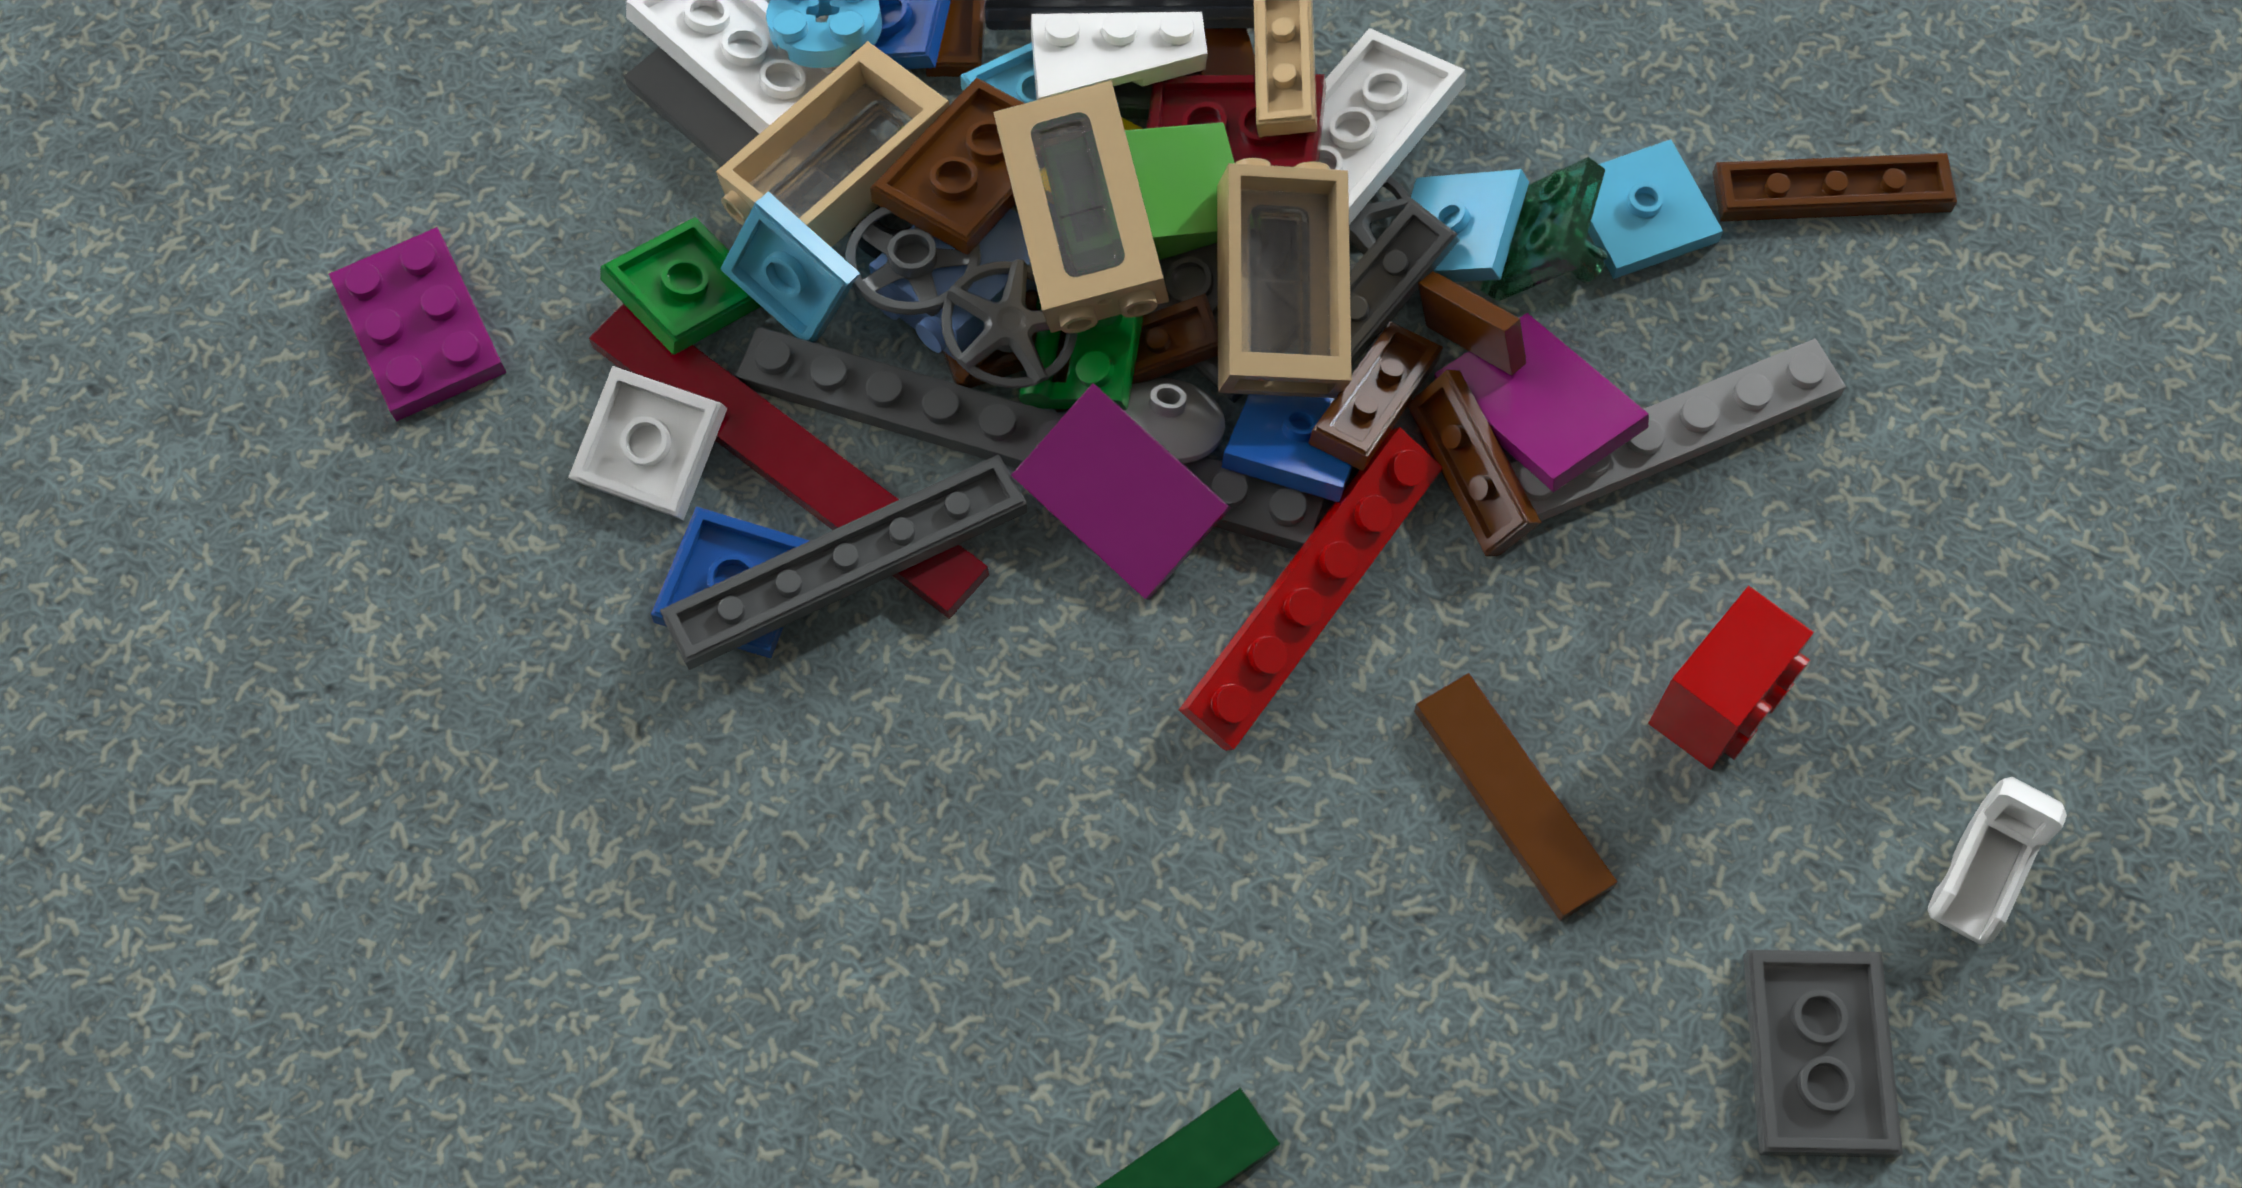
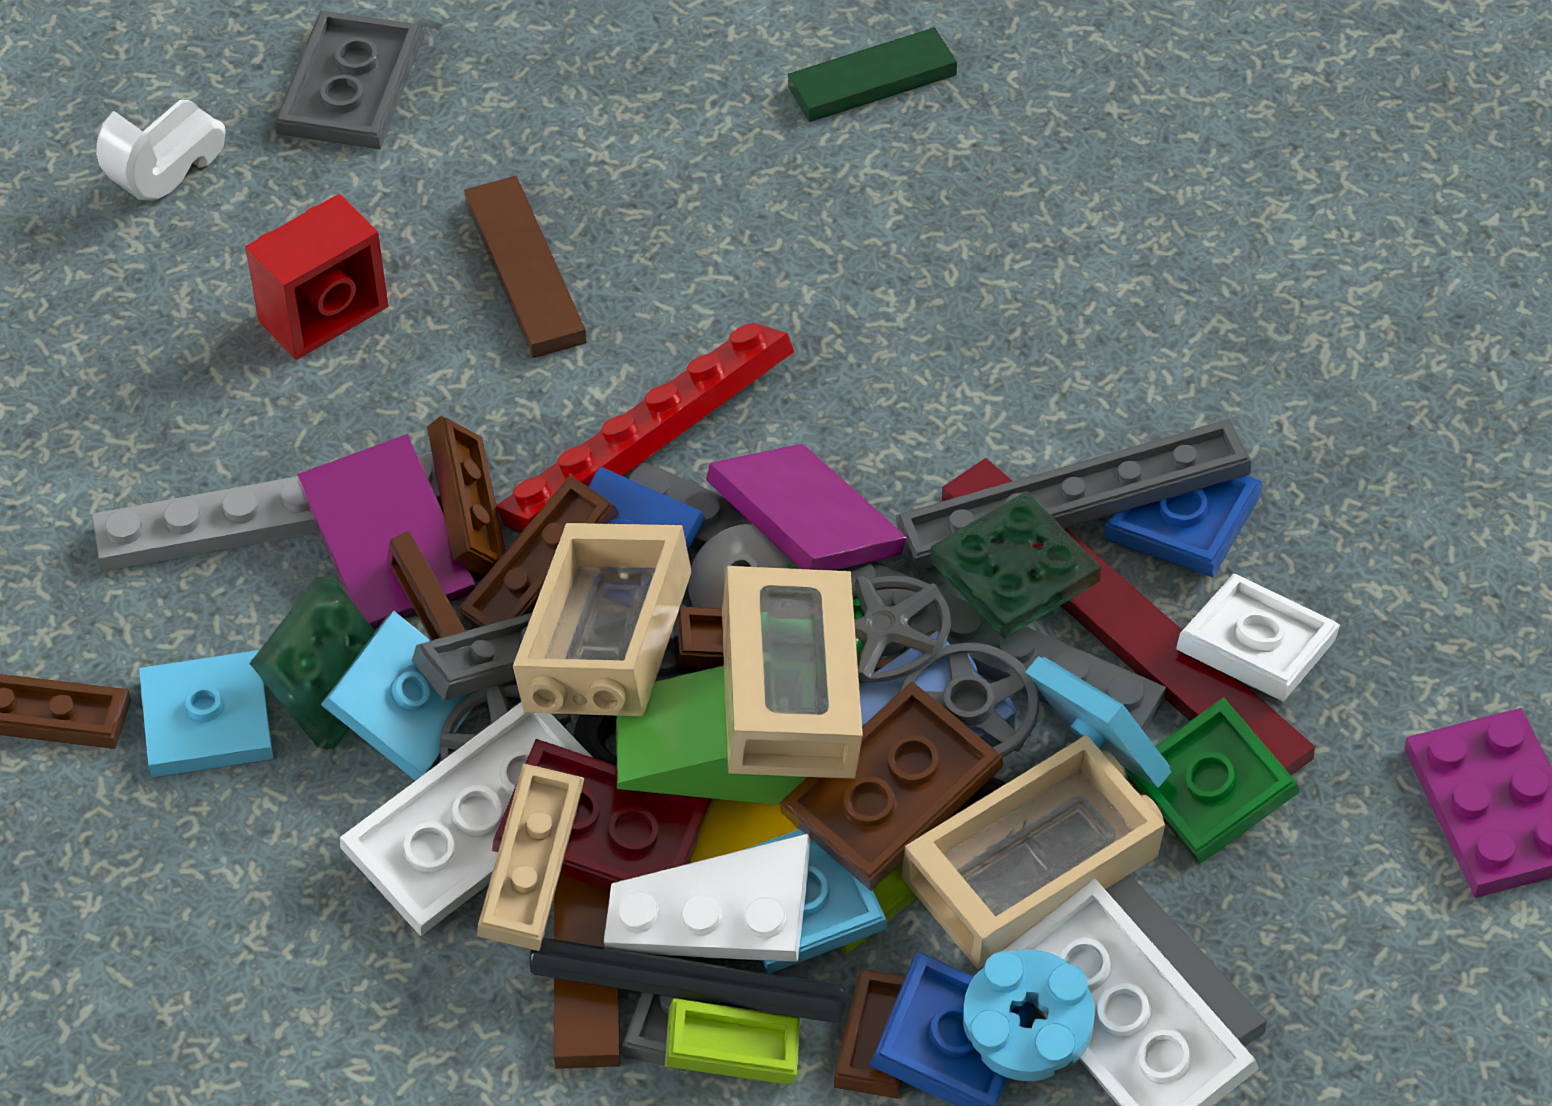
camera: 170 degrees left, 15 degrees down
(904, 446) = (1022, 579): none -> clear green plate

